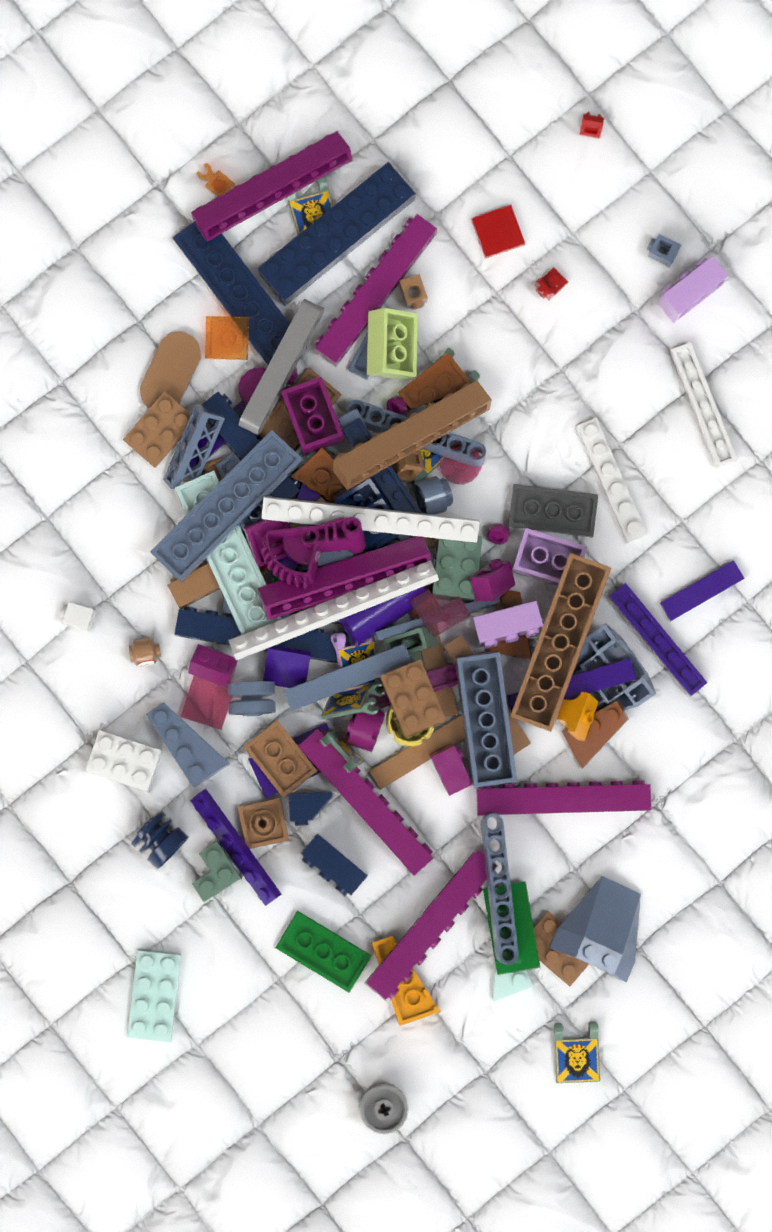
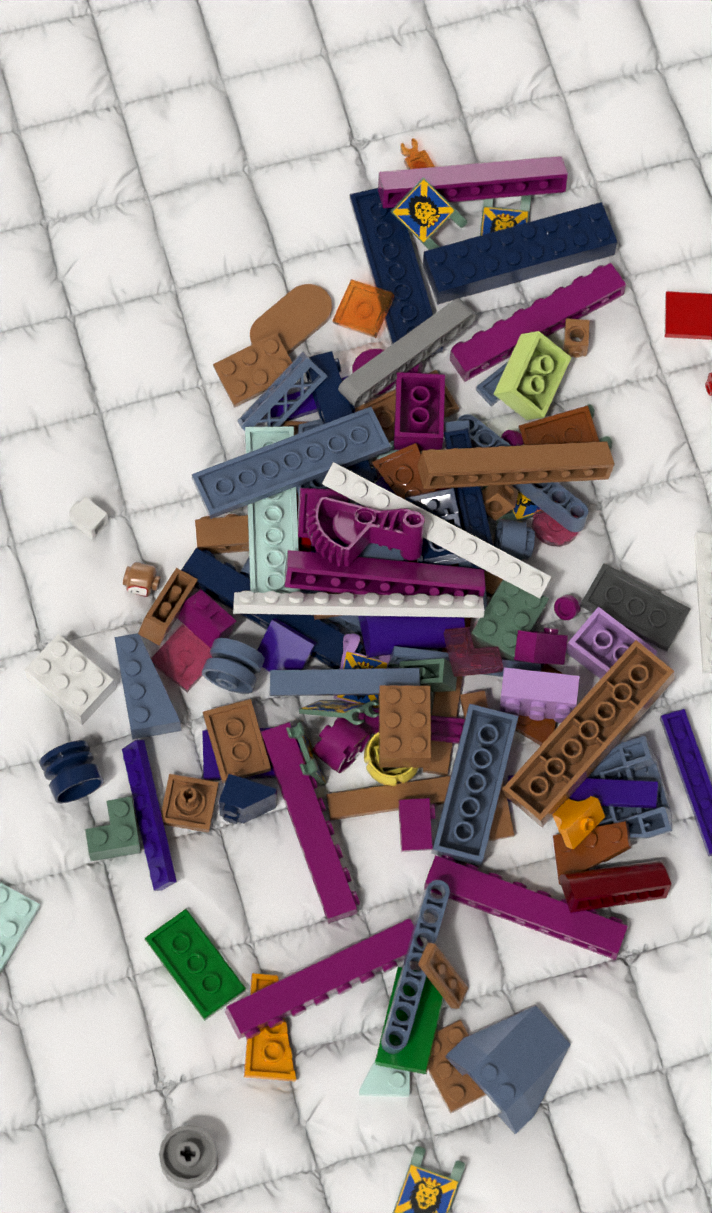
camera: 25 degrees right, 15 degrees down
(177, 670) = (167, 606): none -> medium nougat brick
(244, 231) = (425, 211): none -> flag
(333, 865) = (245, 872): dark blue brick -> none
(523, 886) = (443, 975): none -> medium nougat tile
(627, 754) = (615, 886): none -> dark red brick

